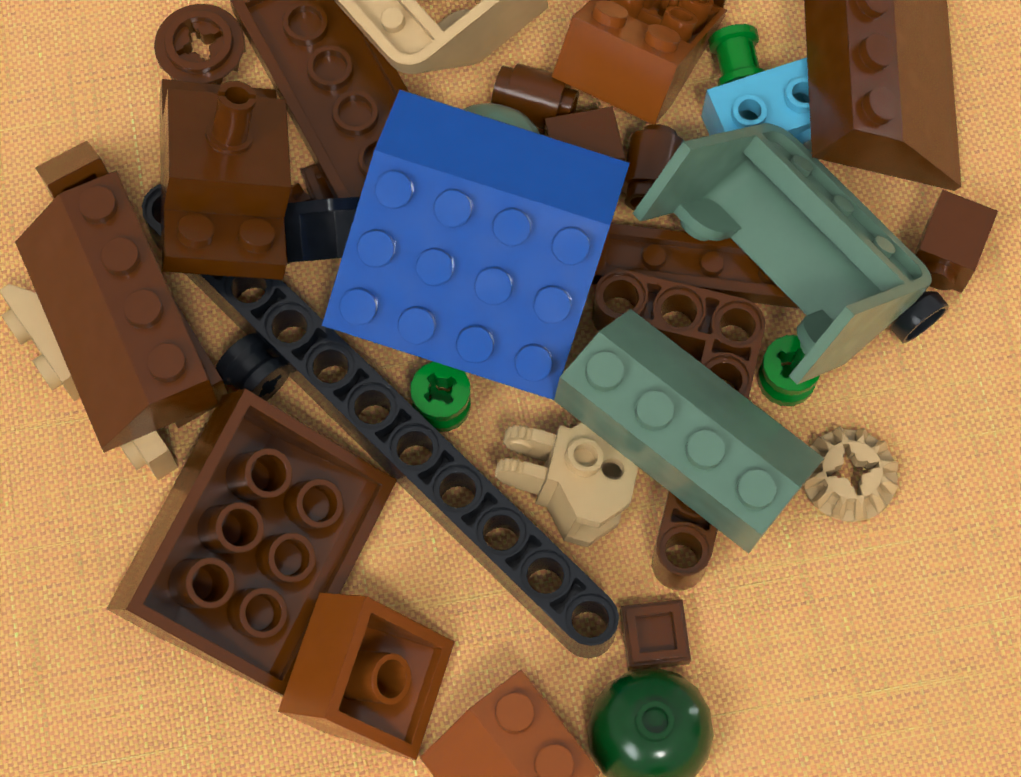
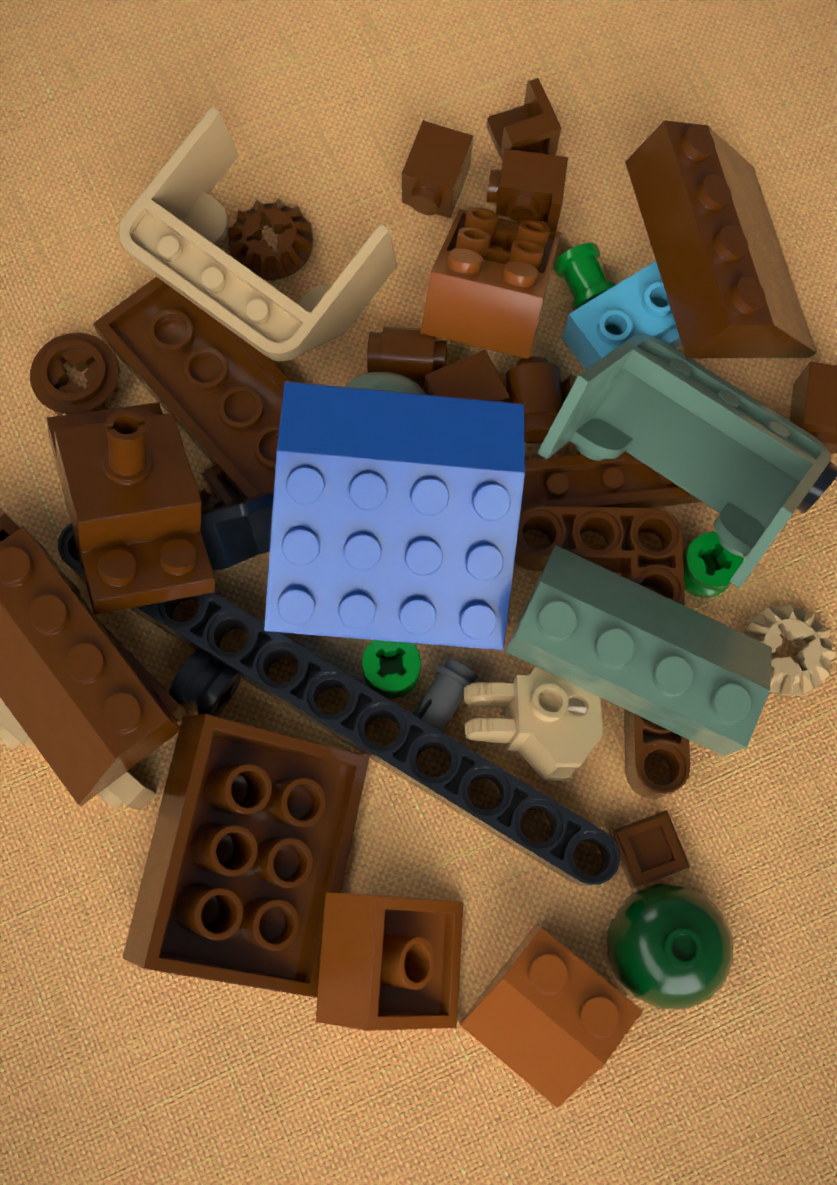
camera: 15 degrees left, 5 degrees up
(487, 435) = (445, 694): none -> dark grey pin

